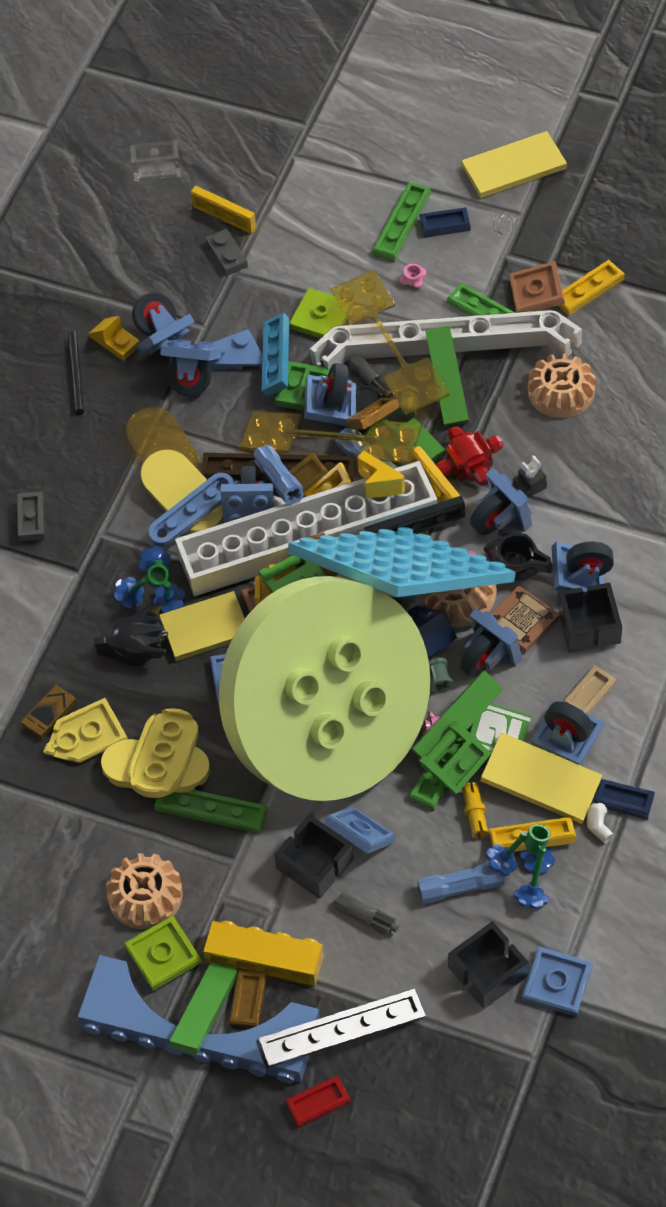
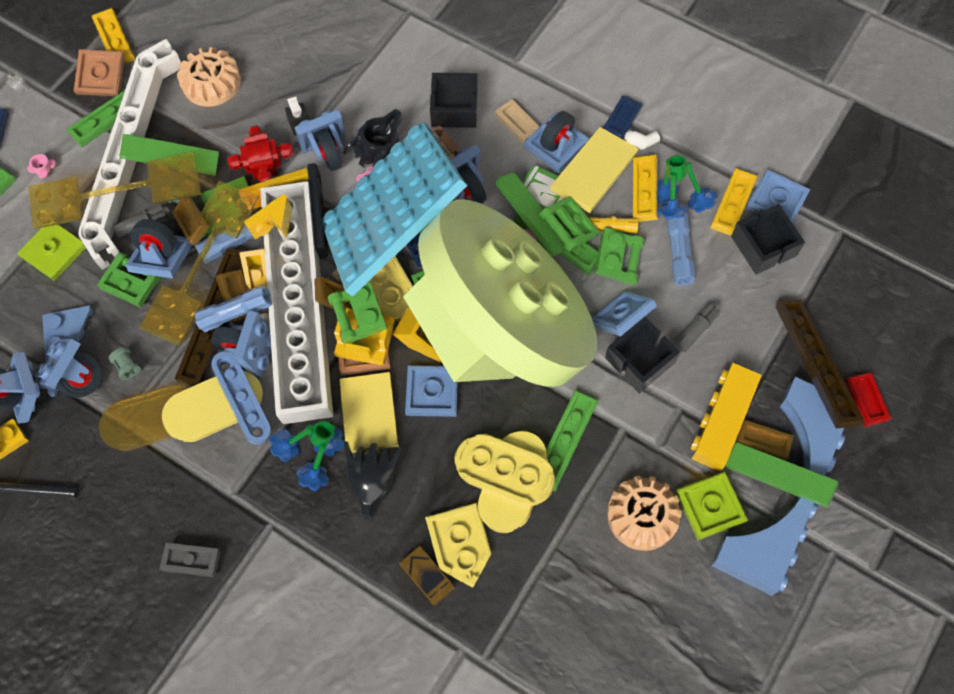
camera: 80 degrees left, 10 degrees up
(211, 409) = (124, 363): none -> sand green bush
(275, 354) = (86, 293): dark azure plate -> none
(435, 812) = (611, 256): none -> bright green plate
(543, 933) = (733, 201): none -> yellow tile
(580, 564) = (405, 93): plate -> none

